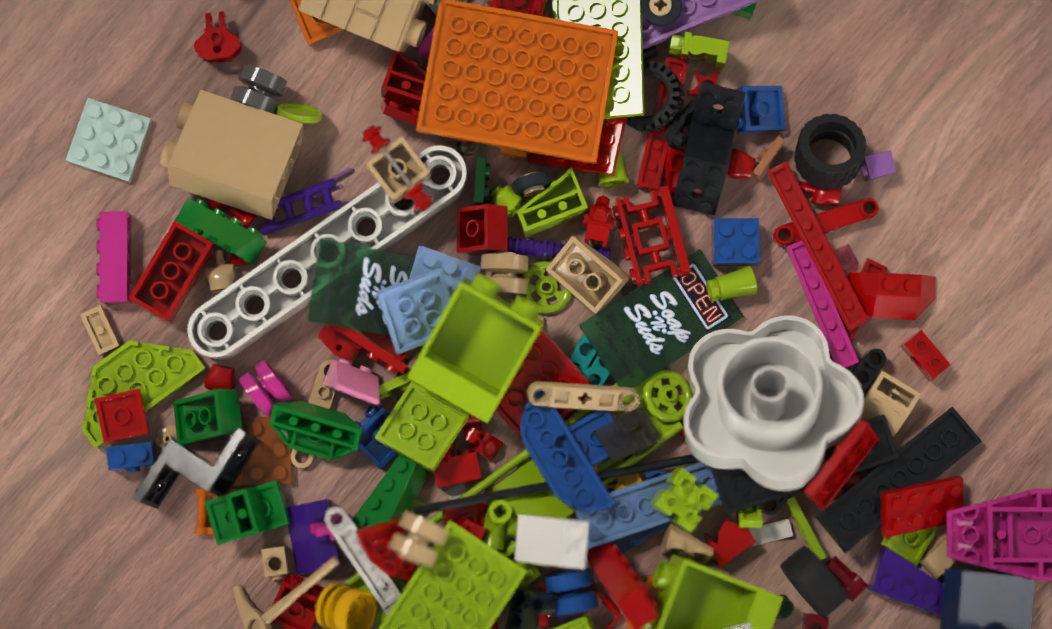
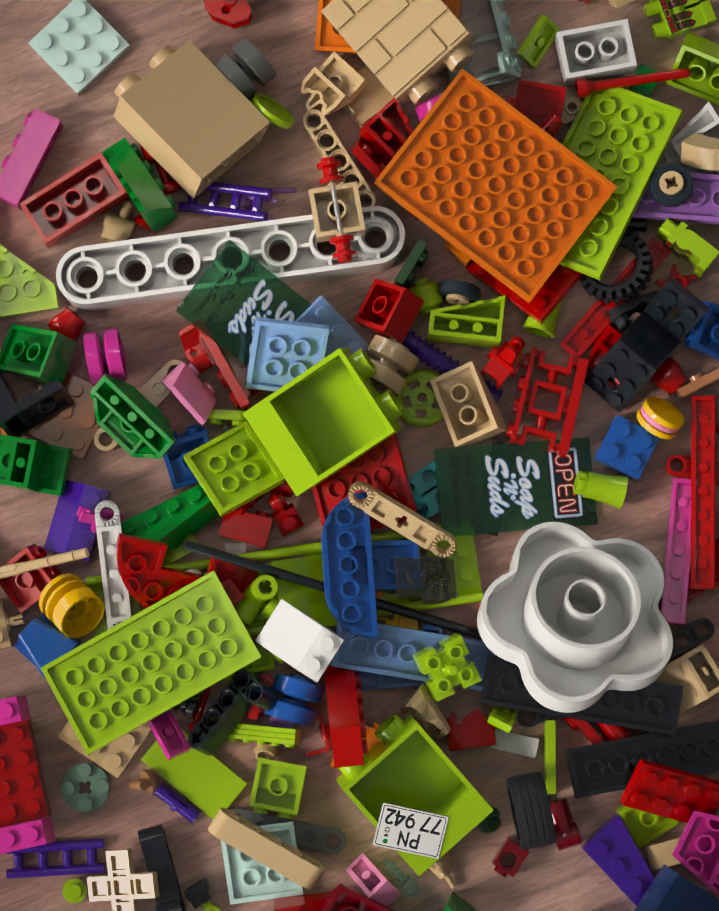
camera: 30 degrees right, 0 degrees up
(281, 553) = (24, 515): tan brick -> none
(338, 66) = (332, 85): none -> tan plate
(367, 62) = (369, 100): none -> tan piece
(369, 119) = (337, 150): none -> tan beam
(415, 545) = (168, 576): tan wheel -> none
(470, 148) = (415, 227): dark tan arm -> none
(653, 403) = (465, 560): lime plate -> none
(750, 202) = (660, 417): none -> yellow head
(842, 464) = (615, 712): red plate -> none

